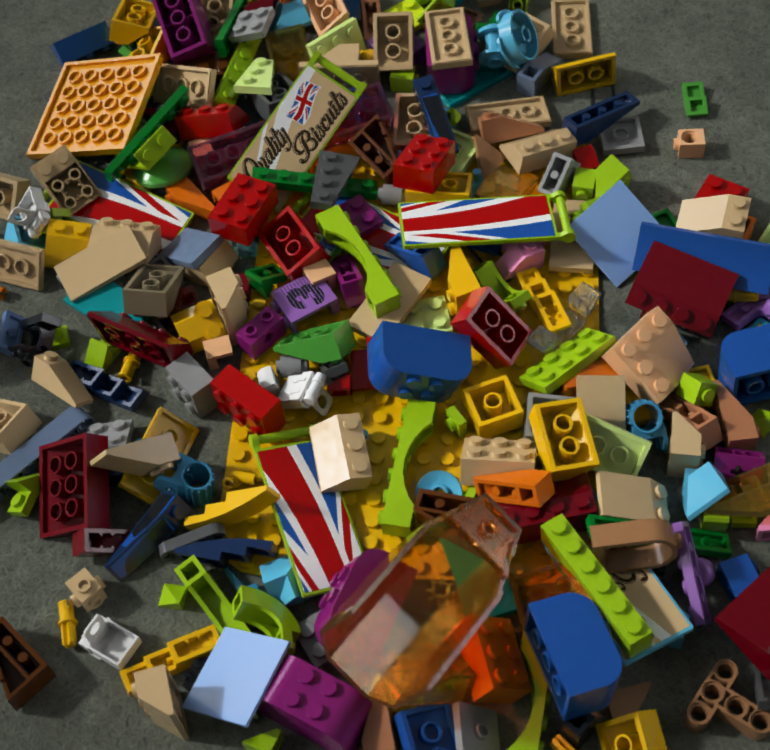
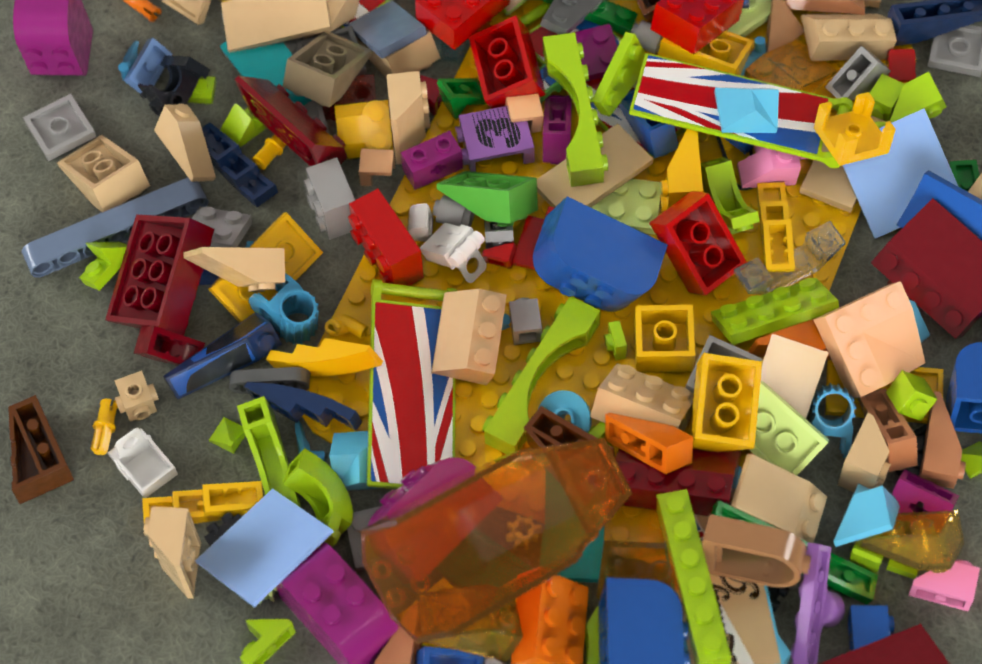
camera: 15 degrees right, 5 degrees up
(380, 429) = (525, 321): none -> light grey brick
(384, 225) = (620, 75): none -> lime wing
(491, 218) = (747, 109): none -> medium azure slope
(576, 213) = (853, 134): none -> yellow panel

